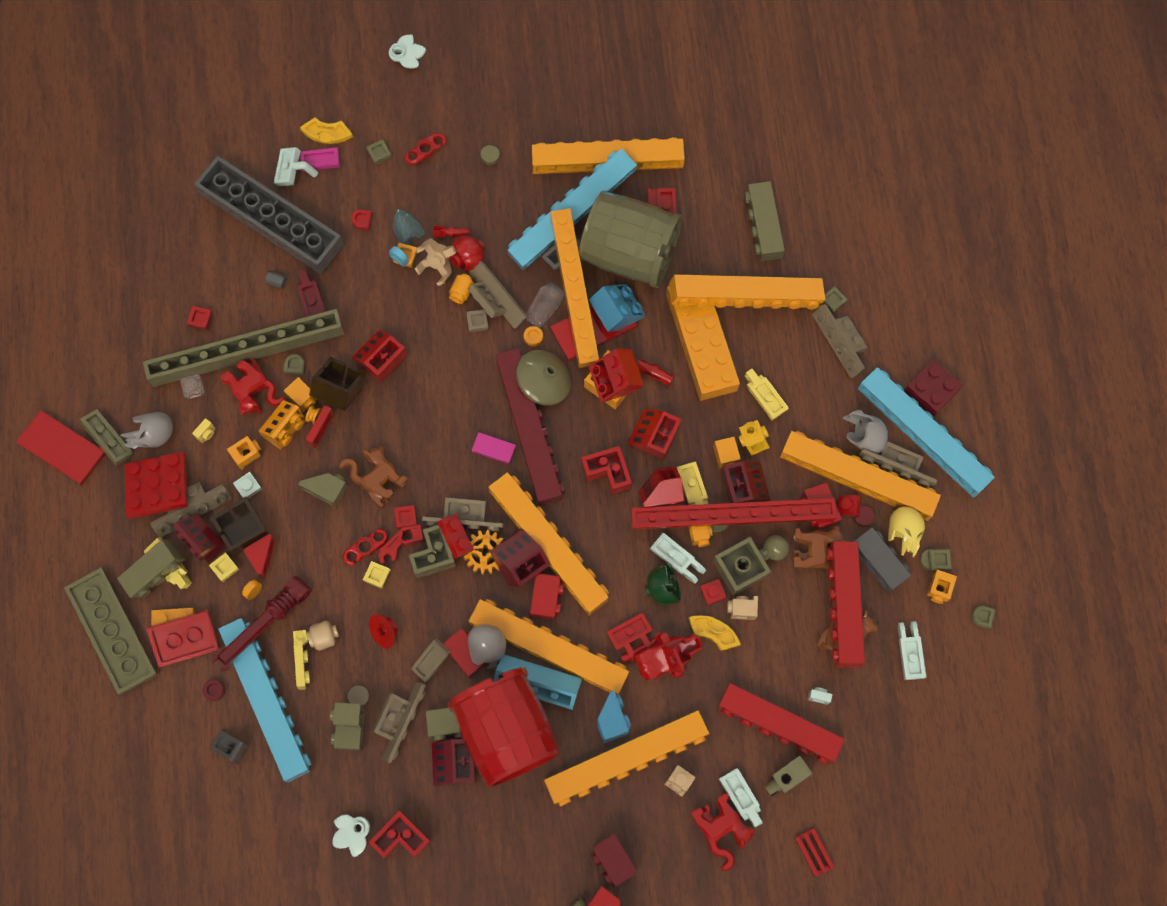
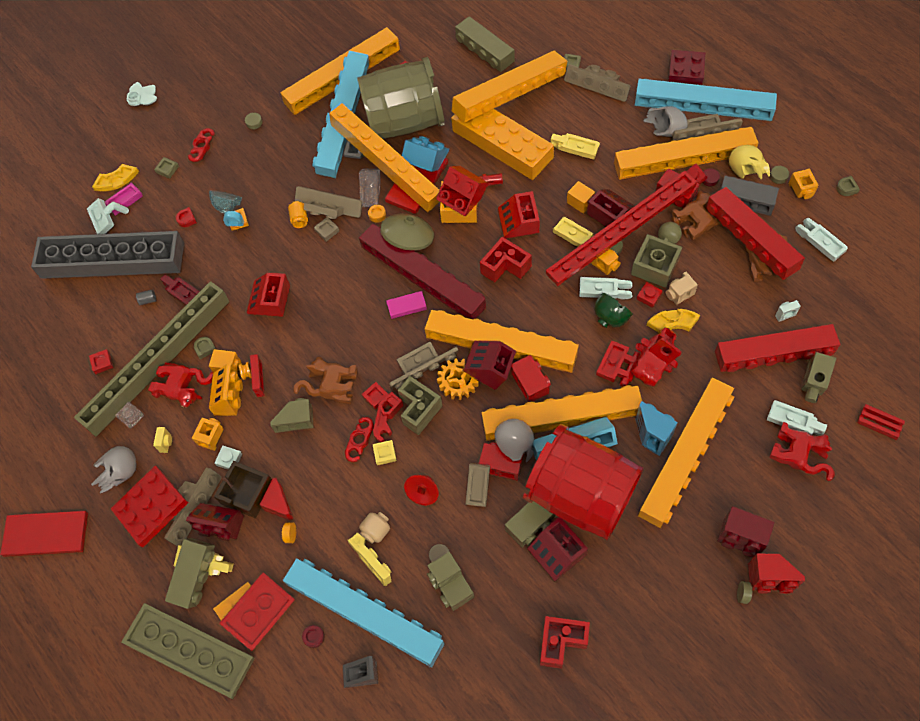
camera: 25 degrees left, 10 degrees down
(106, 437) = (80, 498): olive plate -> none
(224, 567) = (252, 531): light yellow plate -> none
(275, 610) = (321, 532): dark red piece -> none
(329, 386) = (244, 339): dark brown piece -> none
(349, 836) = (515, 672): light aqua plate -> none
(395, 718) = (484, 550): dark tan bracket -> none
(437, 258) = (264, 204): tan piece -> none
(440, 231) = (254, 188): red piece -> none
(455, 536) = (427, 377): red plate -> none
(468, 252) = (282, 187): red plant -> none
(661, 488) = (556, 244): slope -> none
(680, 780) = (741, 438): tan brick -> none
(754, 437) = (592, 174): yellow brick -> none
(939, 559) = (786, 168): olive tile -> none

